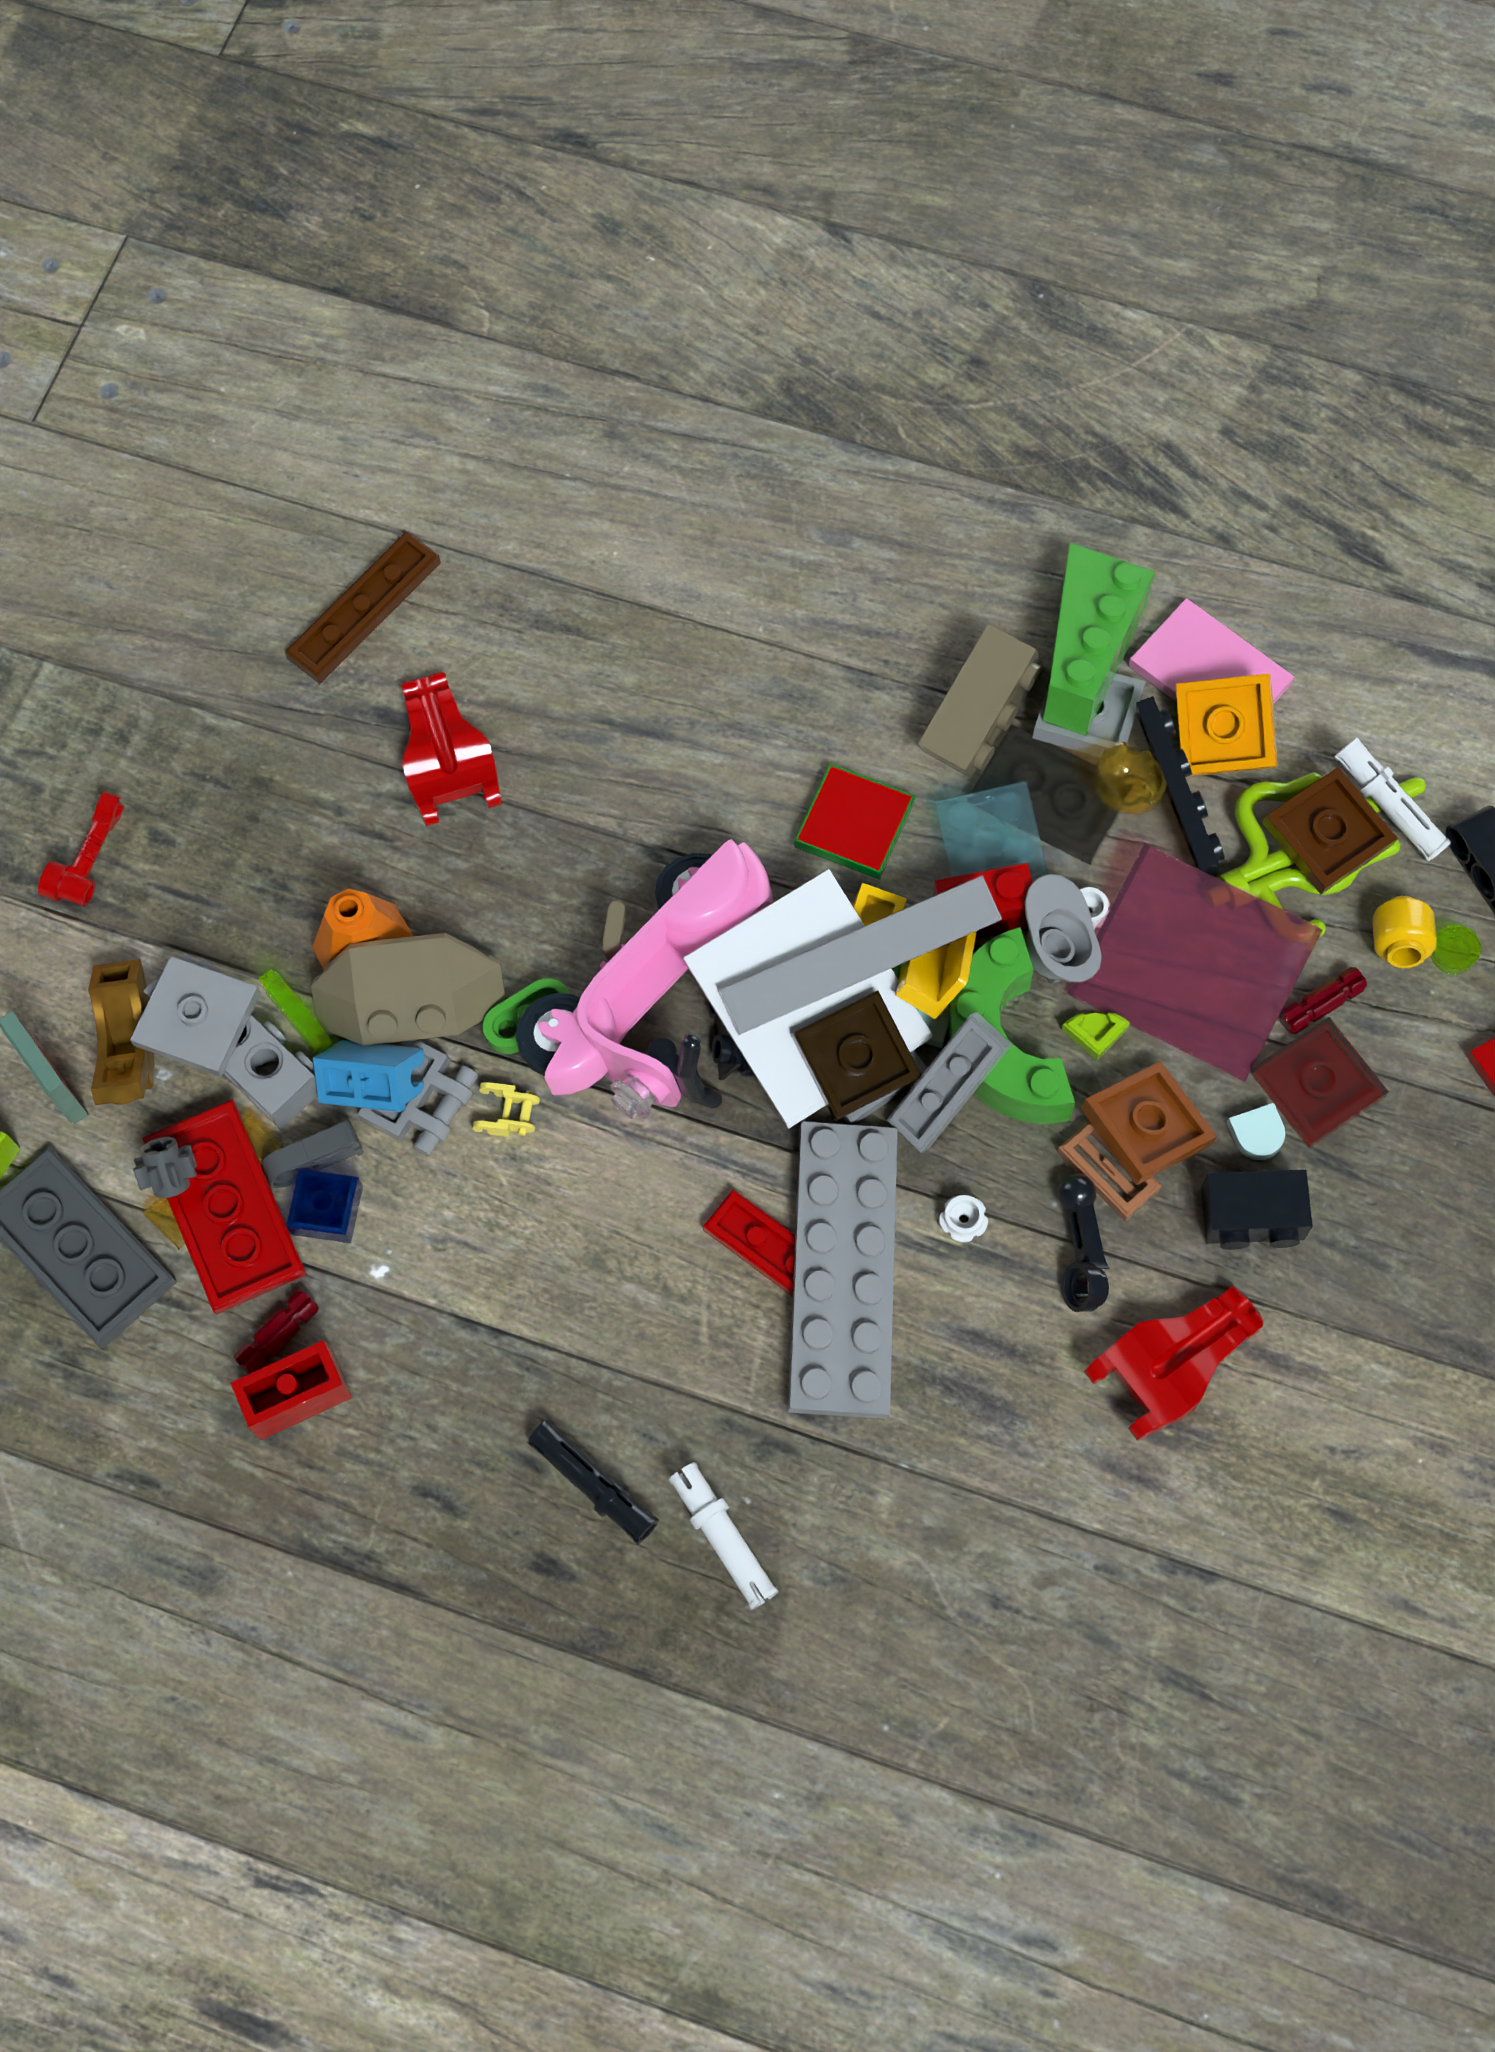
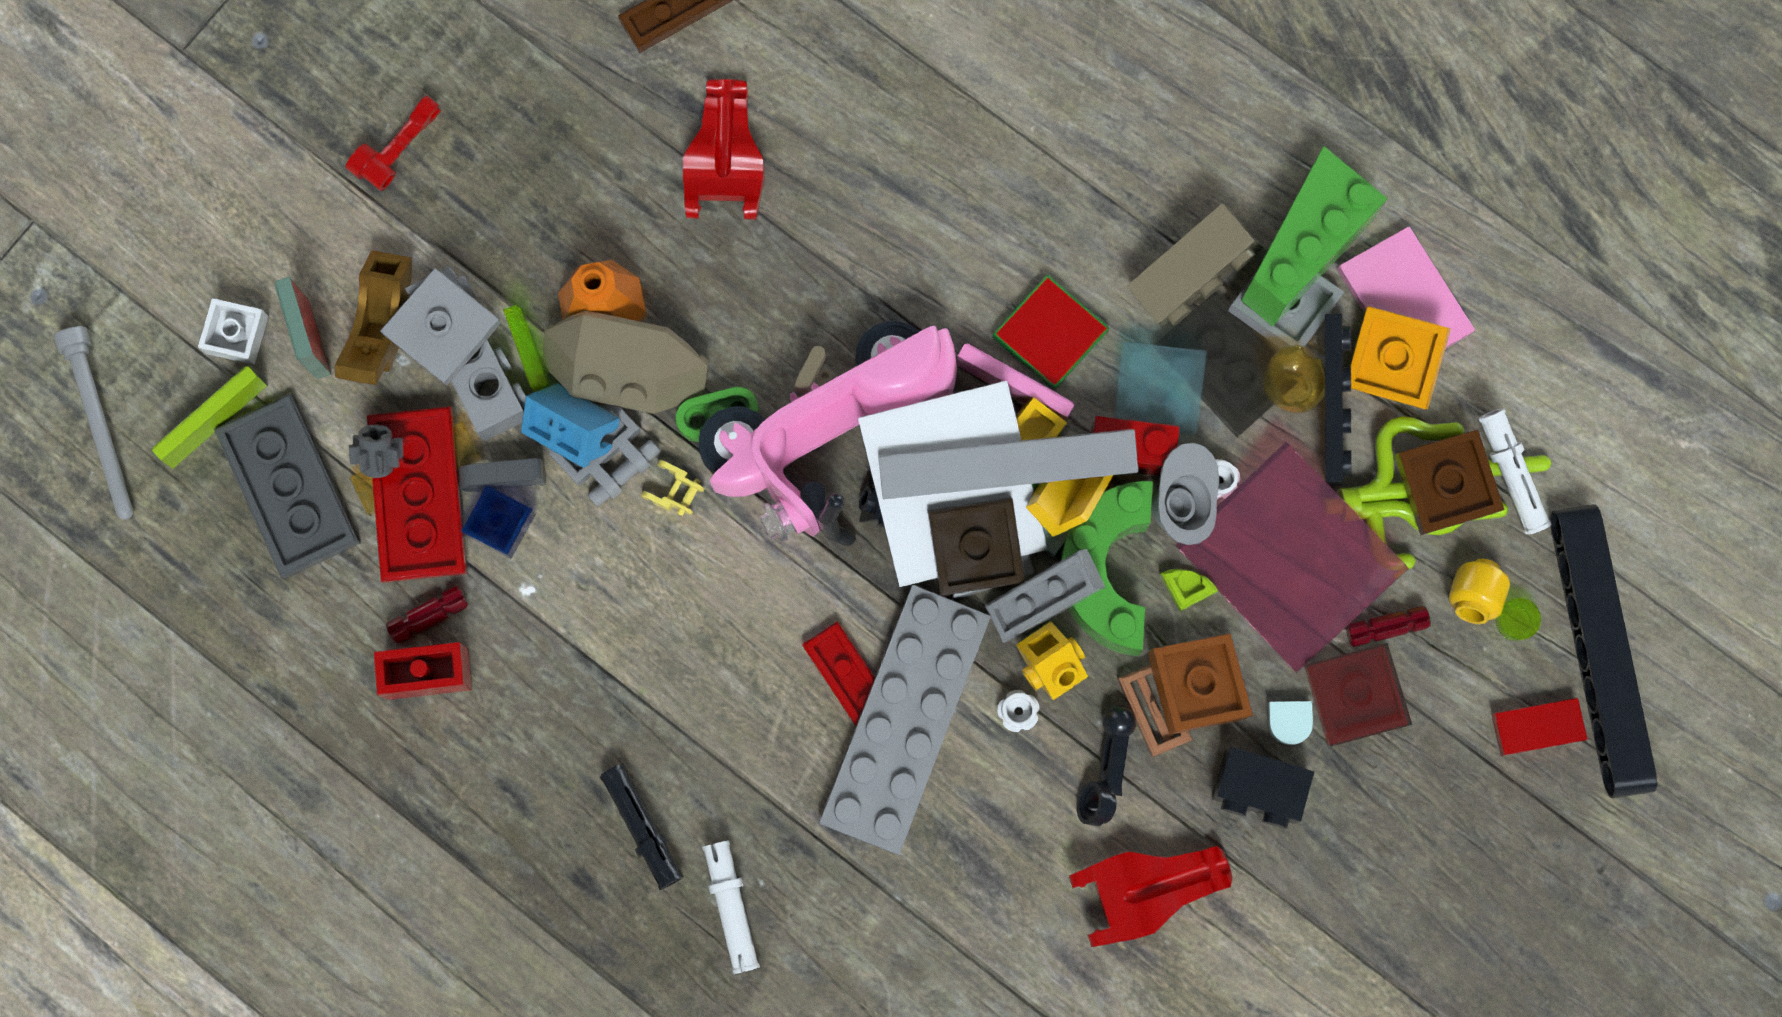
camera: 15 degrees right, 10 degrees up
(789, 873) = (1020, 386): none -> bright pink tile
(981, 1150) = (1058, 667): none -> yellow brick

